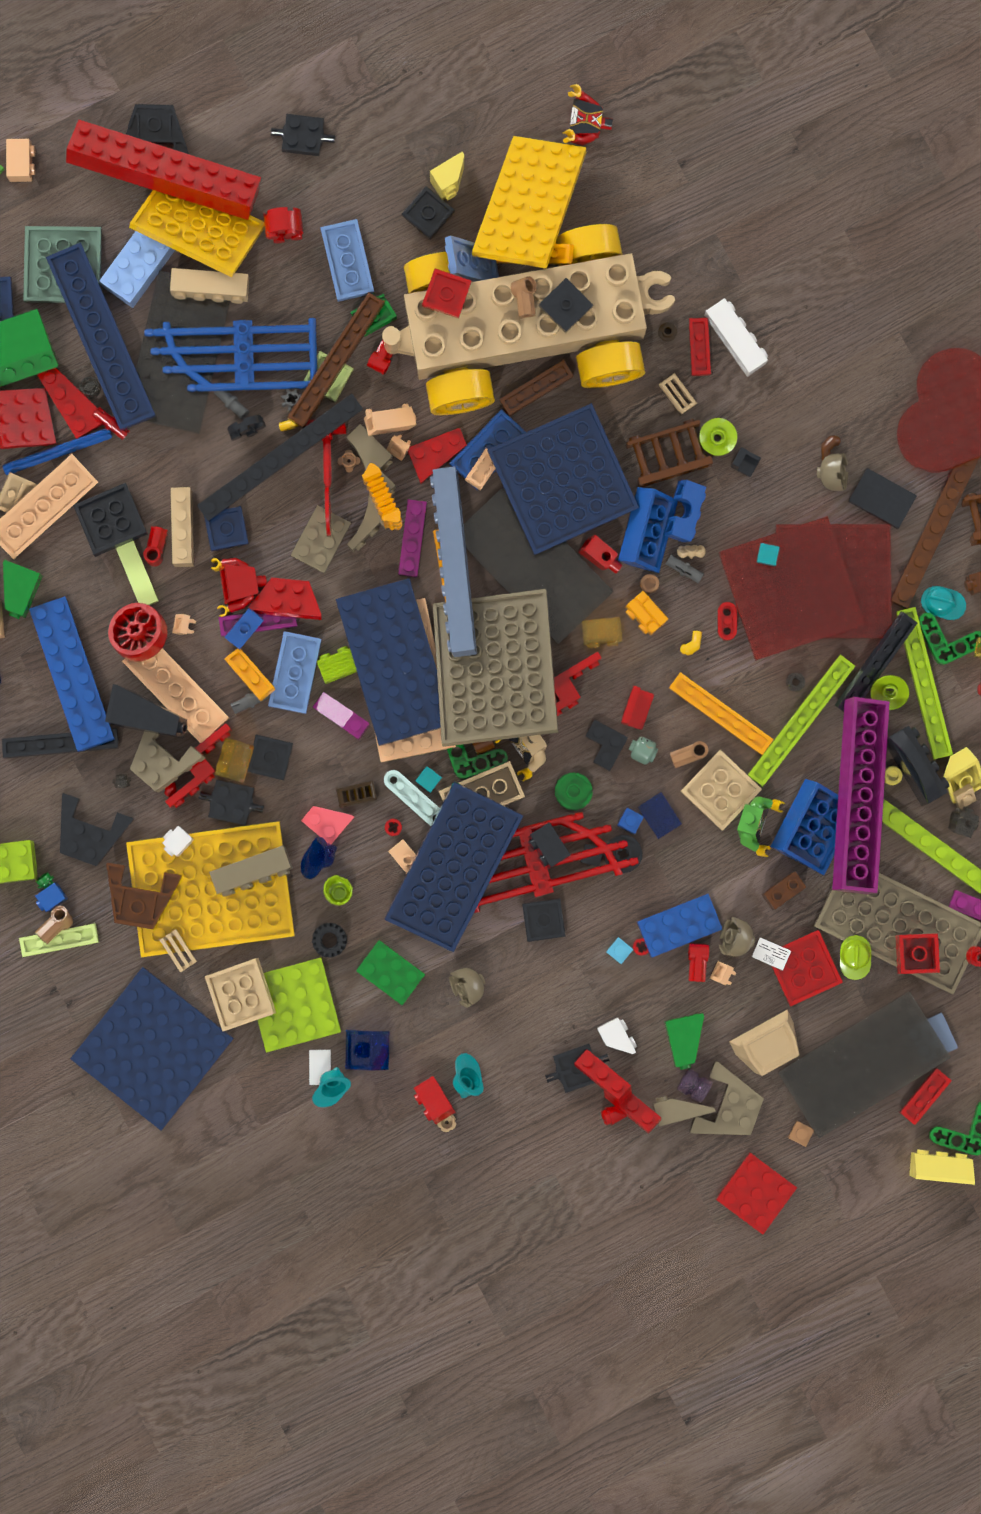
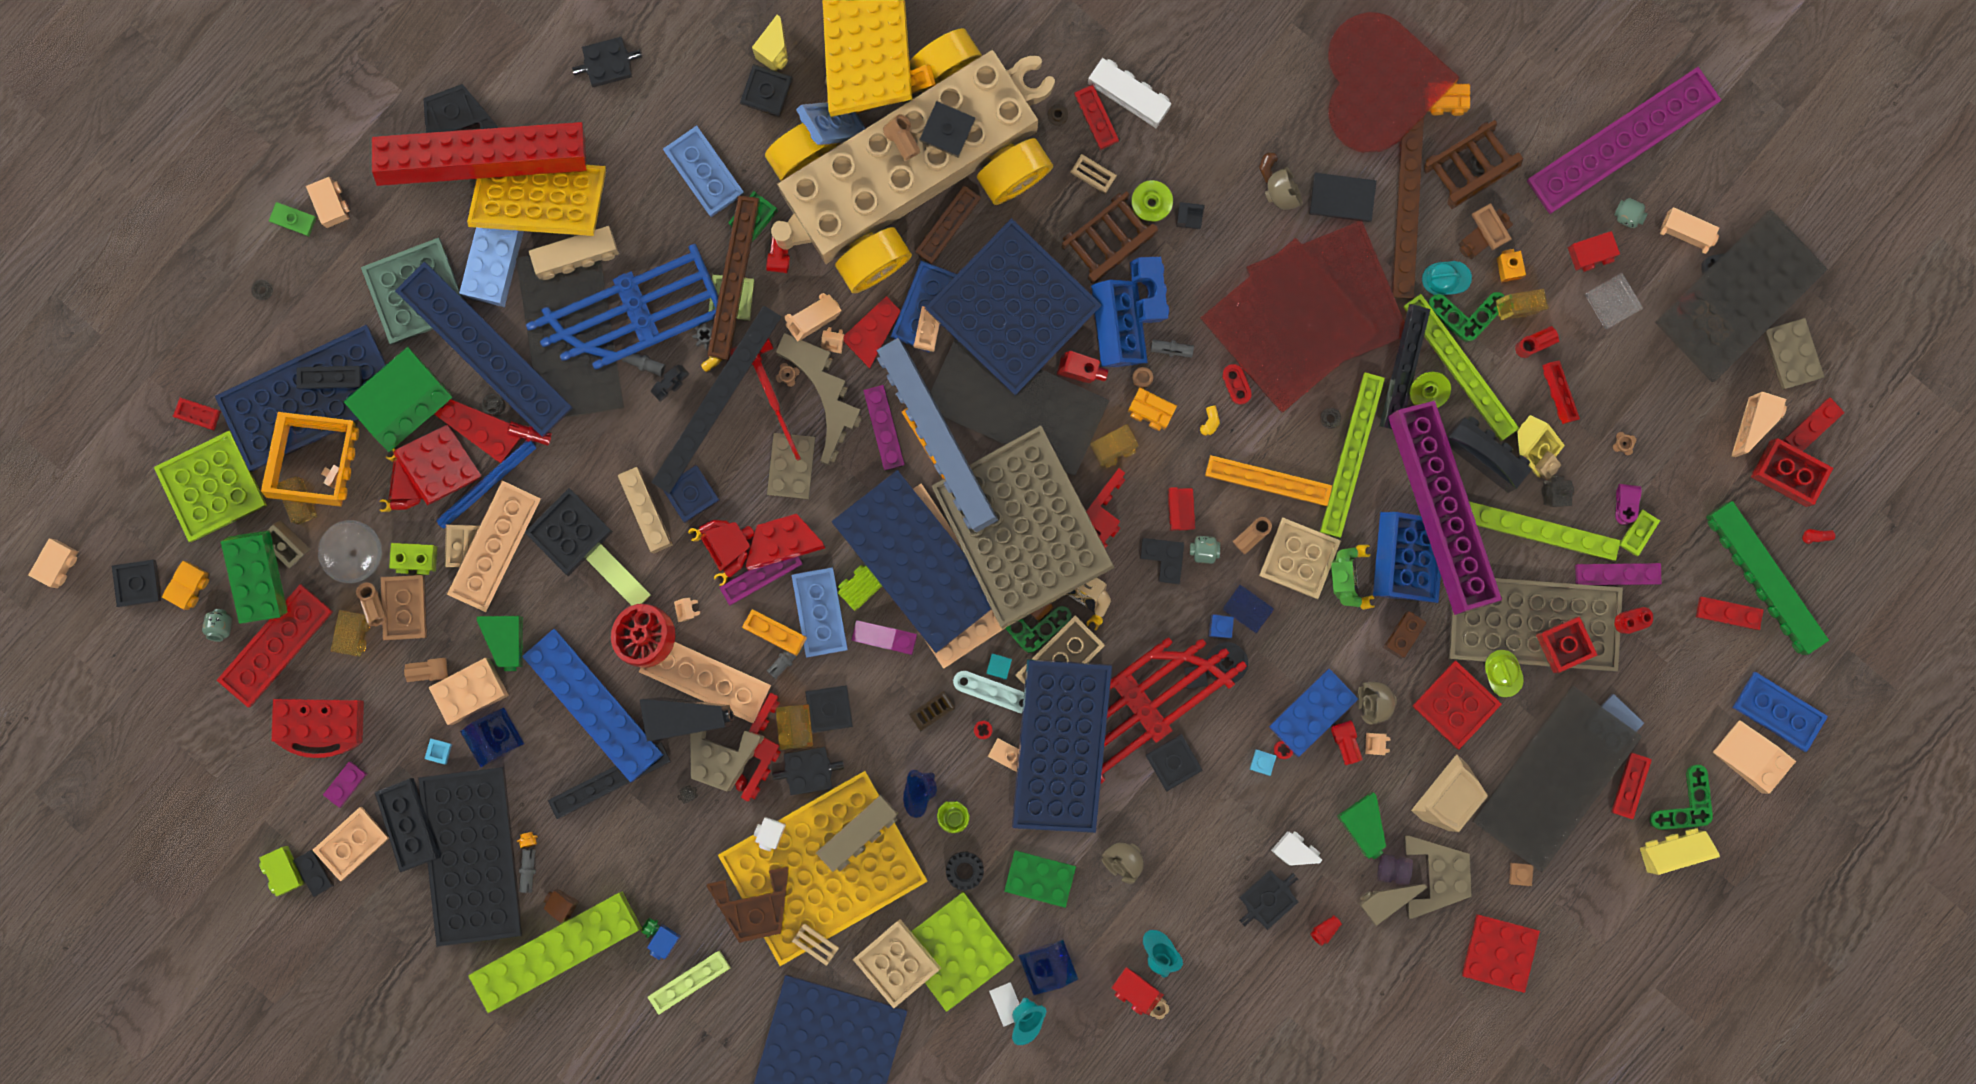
camera: 15 degrees left, 0 degrees up
(53, 925) = (678, 970): medium nougat piece -> none
(85, 840) = (674, 869): black wing -> none
(155, 544) = (625, 538): red piece -> none
(244, 628) = (750, 588): blue plate -> none
(283, 224) = (624, 160): red brick -> none
(327, 822) = (913, 752): coral wing -> none
(382, 498) = (837, 399): light orange piece -> none
(446, 293) = (821, 165): red plate -> none
(548, 846) = (1149, 686): black brick -> none
(569, 795) = (1145, 624): green tile -> none
(617, 1091) = (1320, 907): red bracket -> none
(691, 551) = (1171, 328): tan piece -> none
(767, 554) = (1251, 300): teal tile -> none
(771, 953) = (1418, 704): white sticker -> none
(893, 775) = (1467, 473): light yellow tile -> none

